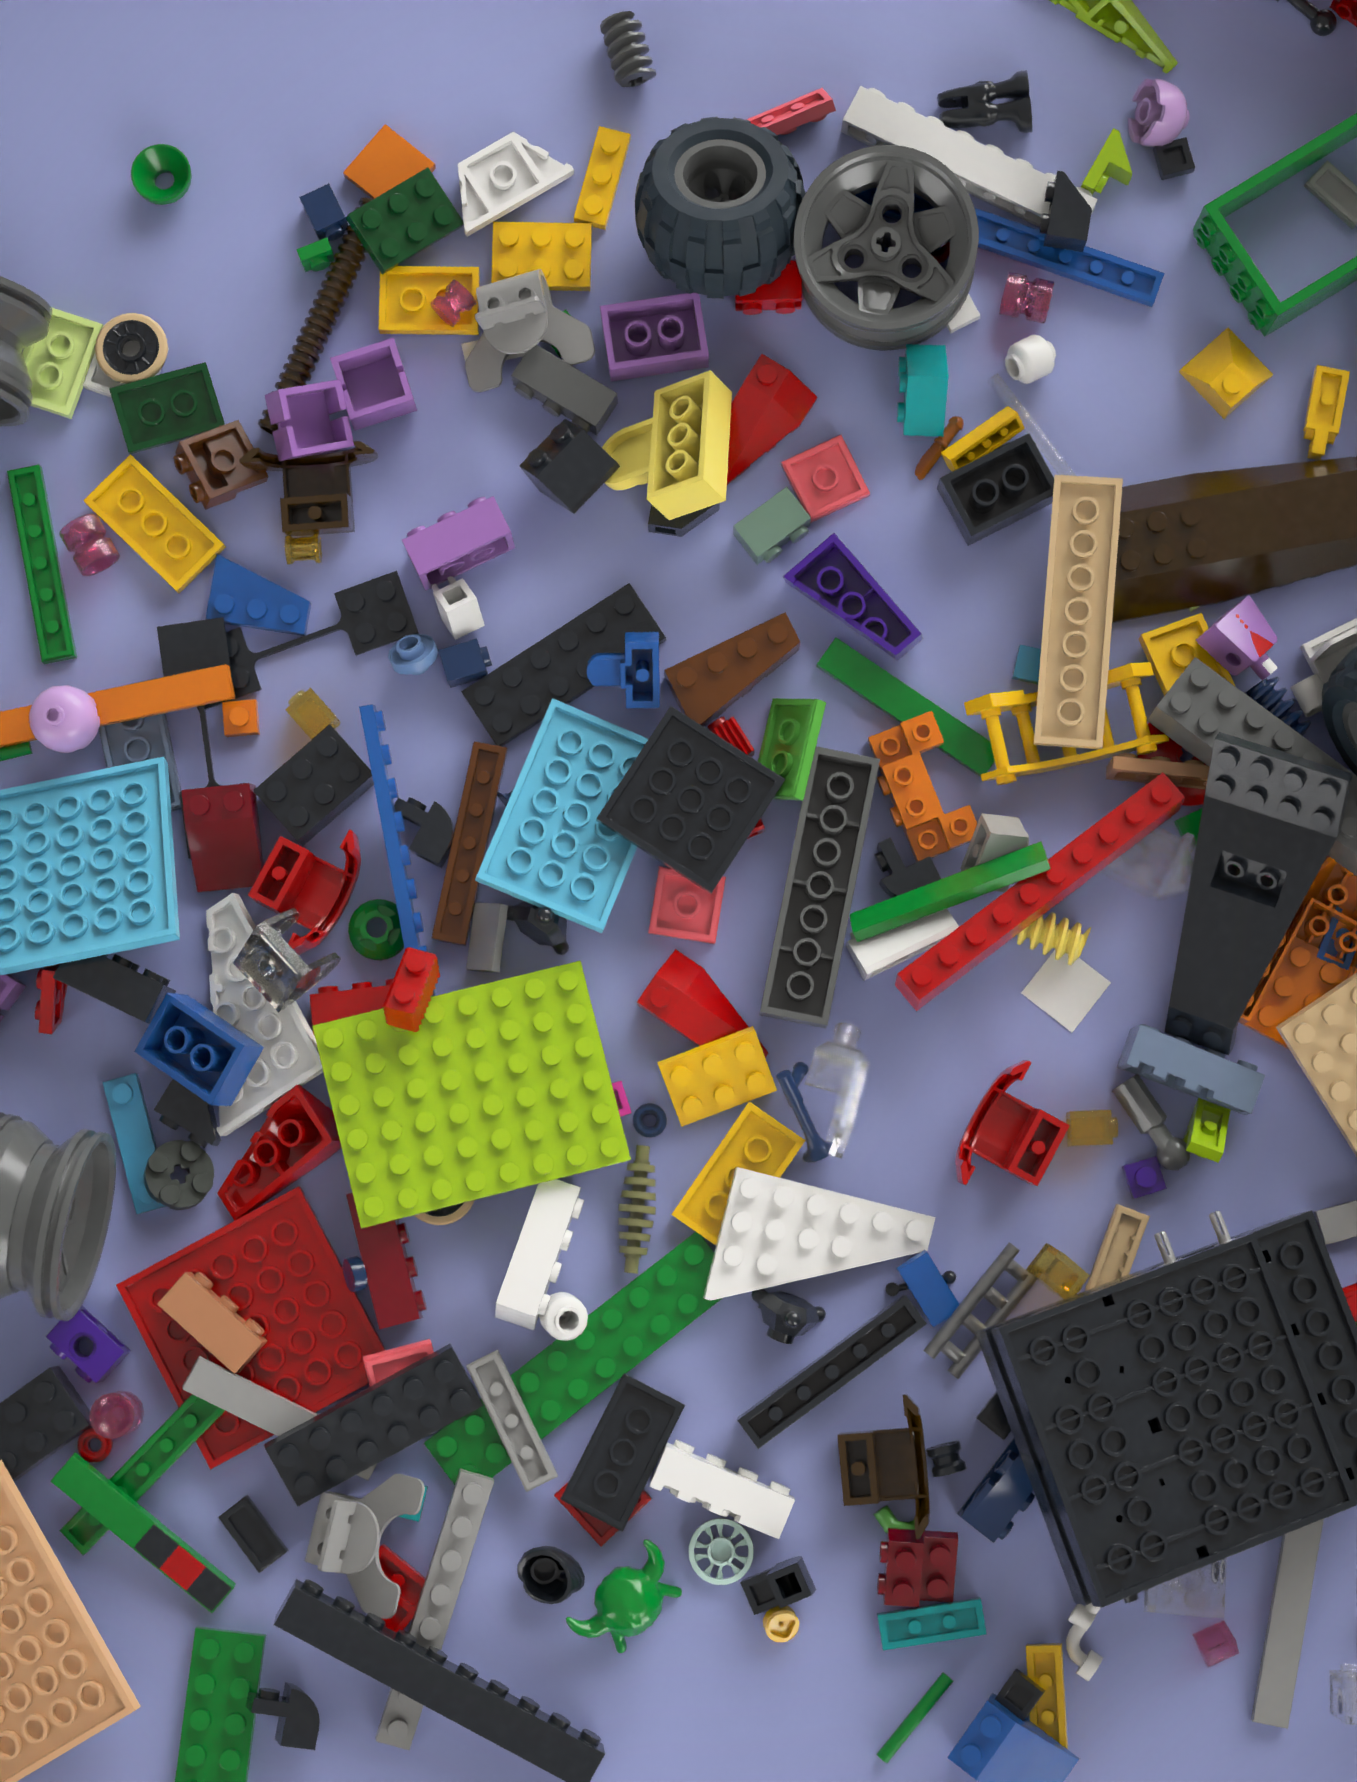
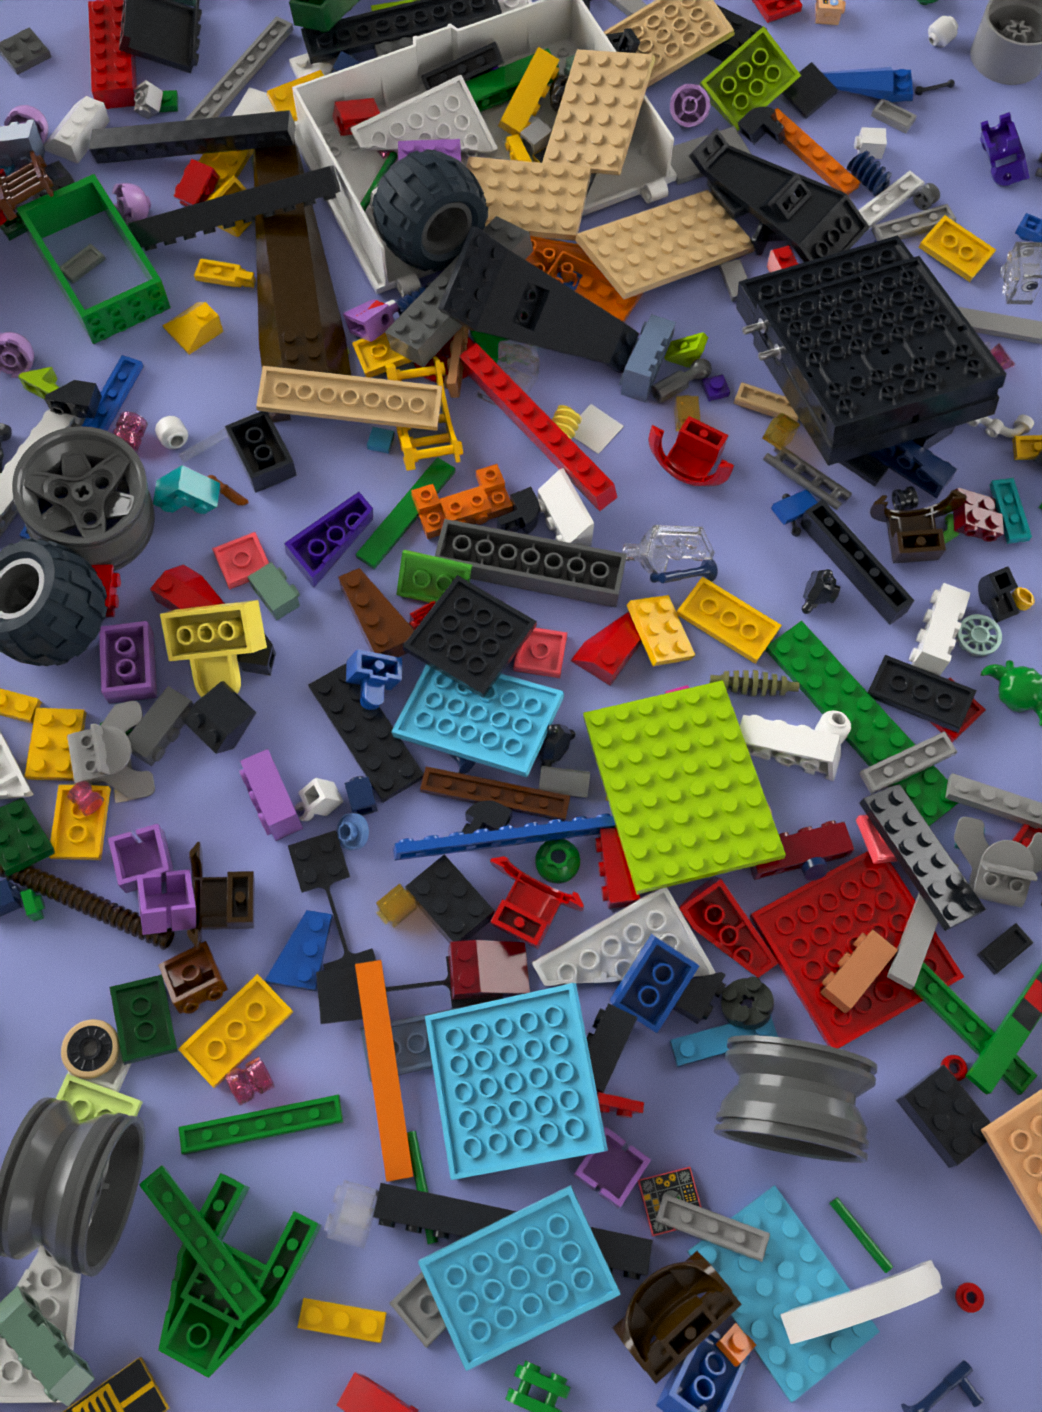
camera: 95 degrees left, 15 degrees down
(64, 718) = (392, 1095): lavender cylinder -> none
(107, 1349) = (895, 1066): dark purple brick -> none
(116, 1414) = (932, 1047): clear pink wheel -> none
(240, 718) = (394, 962): orange plate -> none
(290, 974) = (576, 921): clear smoke hose -> none
(303, 548) = (265, 914): clear yellow bush -> none
(411, 989) = (610, 815): red brick -> none
(549, 1574) = (1011, 739): black hair -> none
(644, 1110) = (691, 670): dark blue plate -> none
(795, 1231) = (763, 580): white wing -> none
(949, 891) = (536, 476): green tile -> none
(983, 439) = (225, 462): yellow piece -> none
(994, 838) = (509, 455): light grey brick -> none
(1174, 159) = (44, 349): black plate -> none

